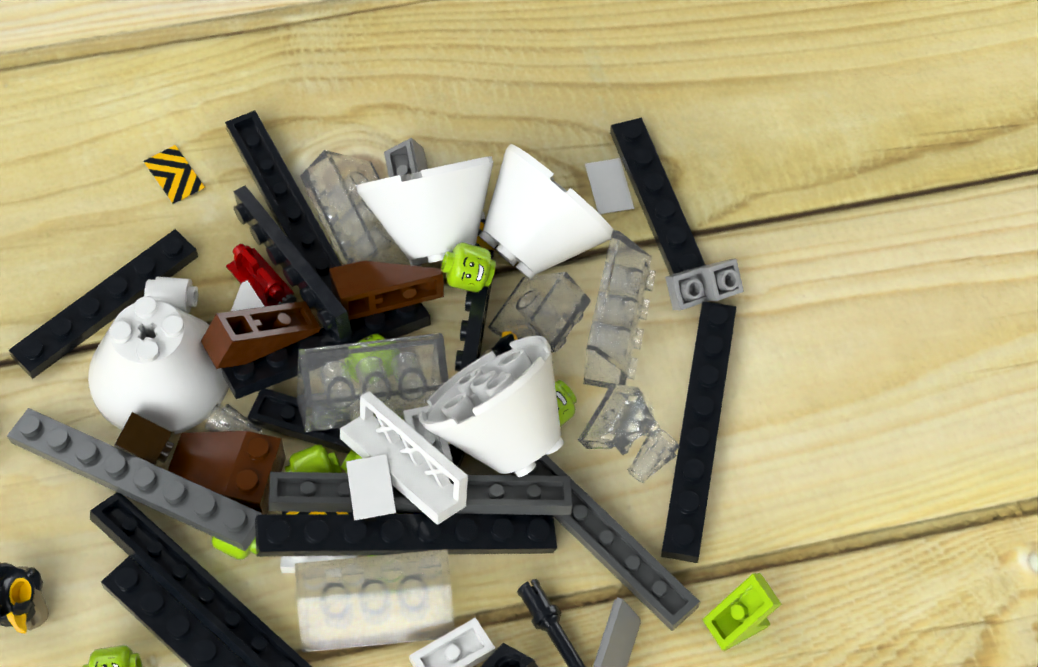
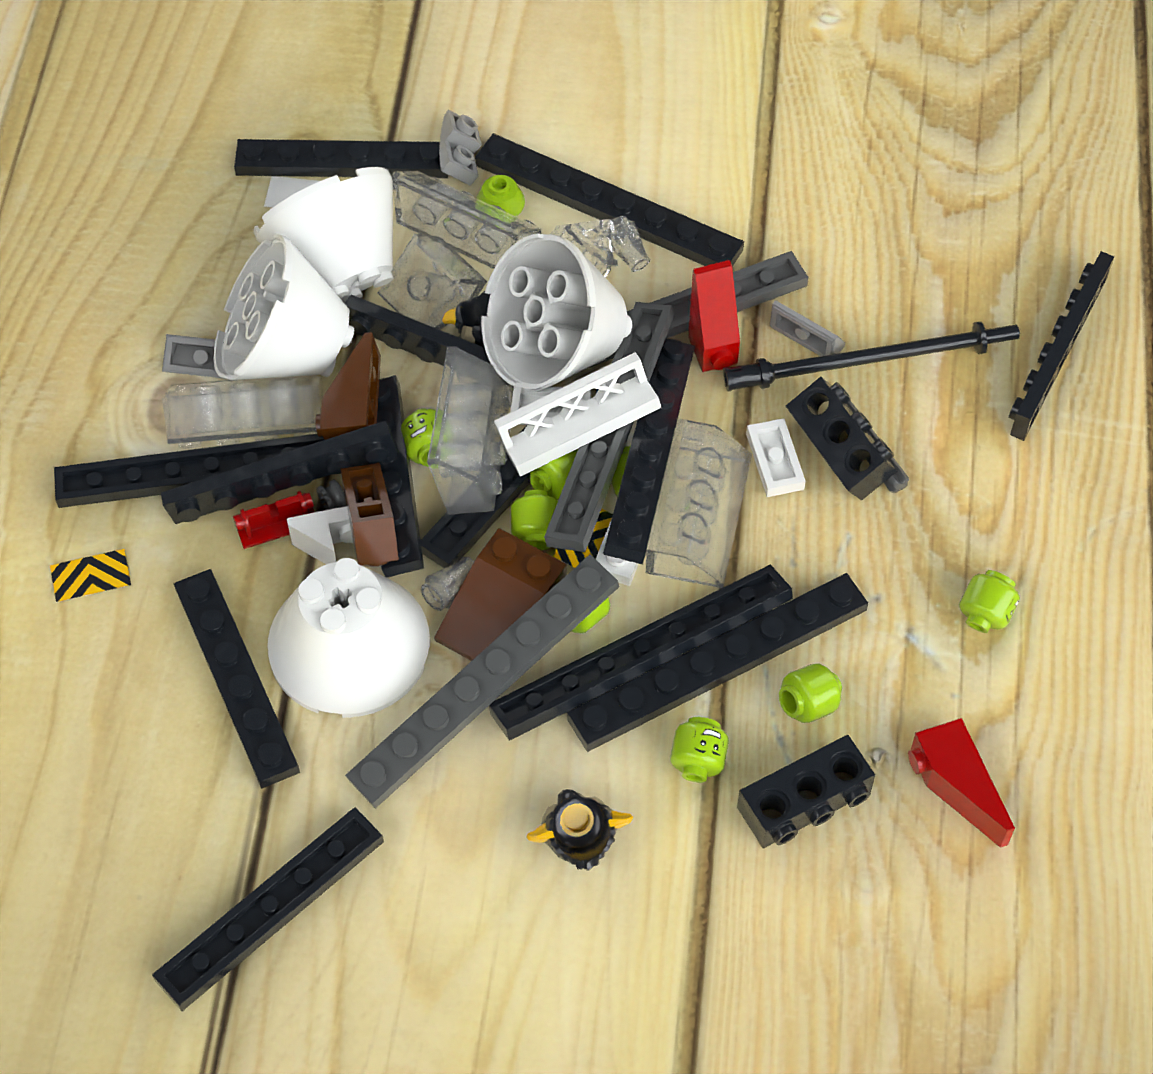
camera: 70 degrees left, 0 degrees up
(145, 440) = (439, 661): dark brown brick -> none
(173, 291) = (261, 604): white brick -> none
(370, 487) = (601, 449): white sticker -> none
(468, 267) = (376, 307): lime head -> none
(570, 548) = (714, 317): none -> slope
(664, 337) = (502, 192): none -> lime cone
(742, 612) = (813, 222): lime slope -> none

